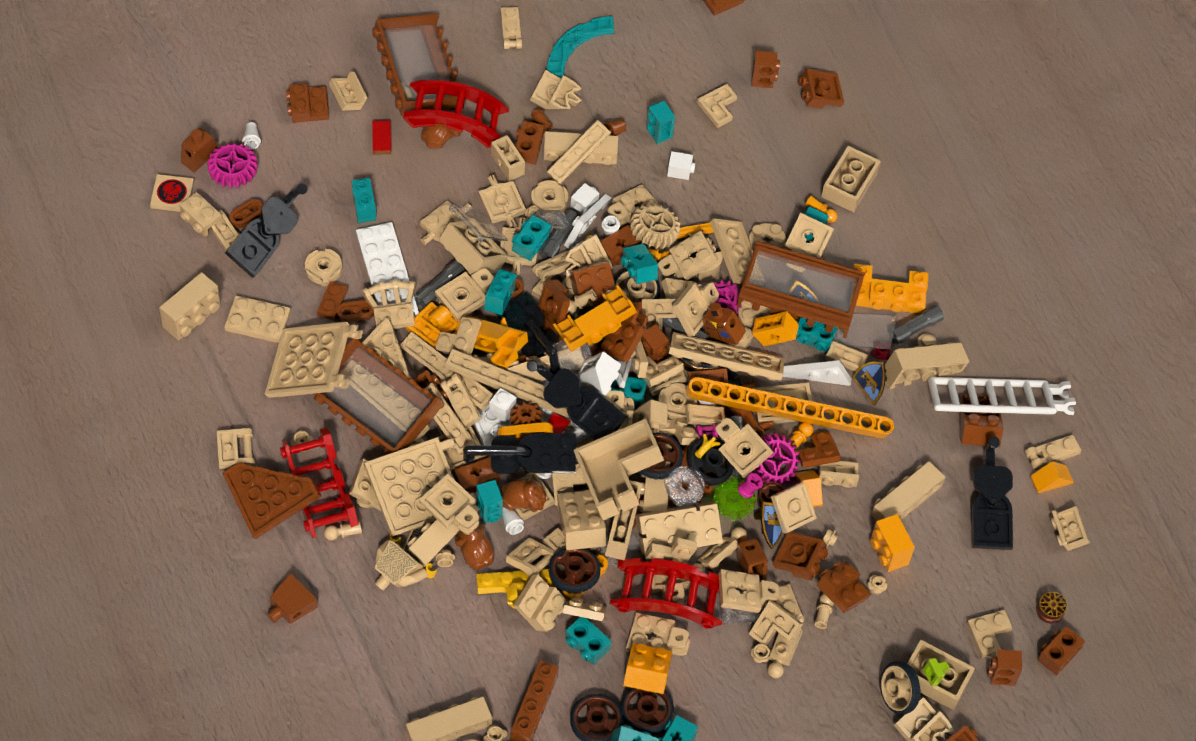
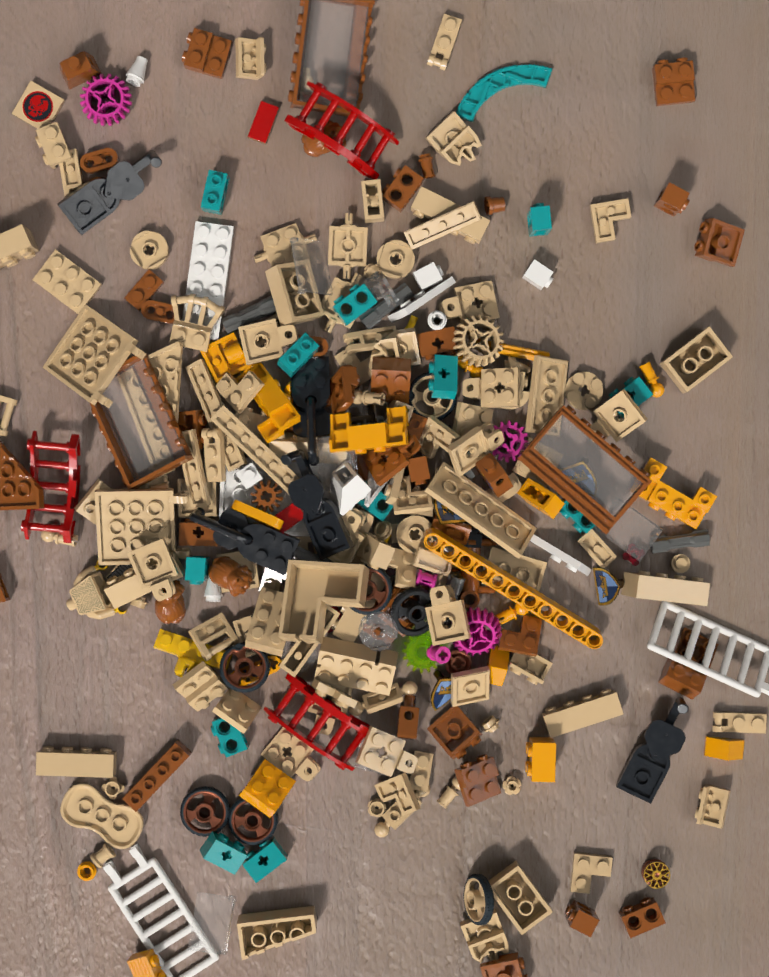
camera: 30 degrees right, 30 degrees up
(300, 435) = (63, 429): tan plate -> none
(706, 446) = (414, 601): yellow bar -> none
(935, 671) = (514, 906): lime tile -> none

